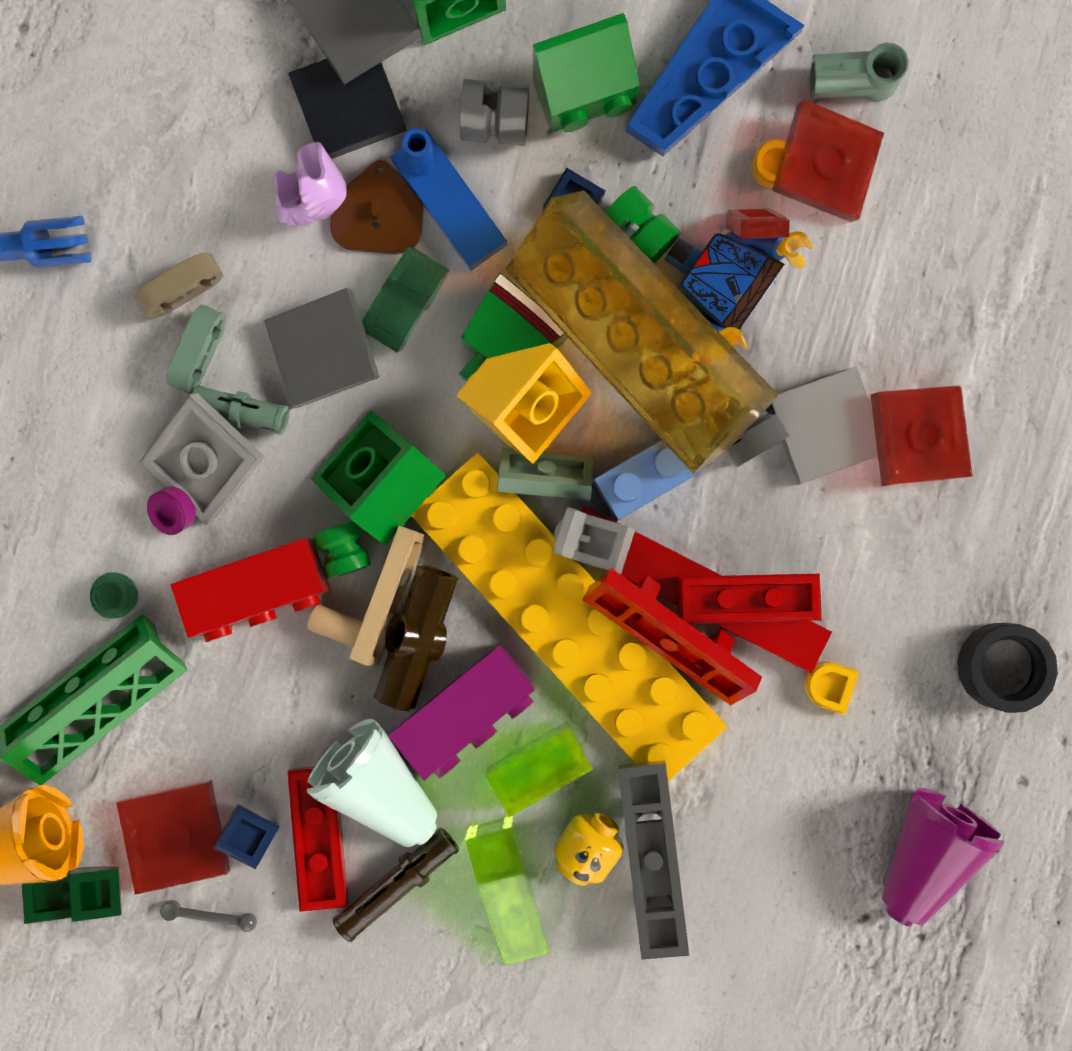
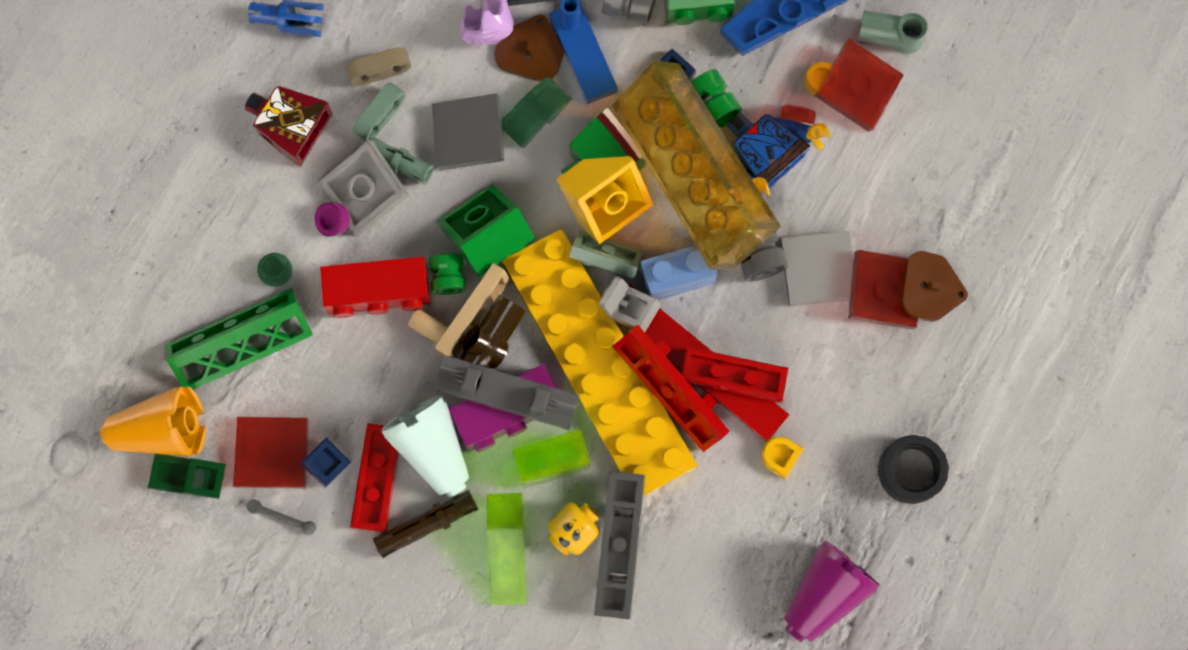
camera: 10 degrees right, 10 degrees down
(78, 390) = (289, 121): none -> torso
(458, 699) = (506, 392): none -> dark grey hinge
(992, 416) = (940, 288): none -> reddish brown piece

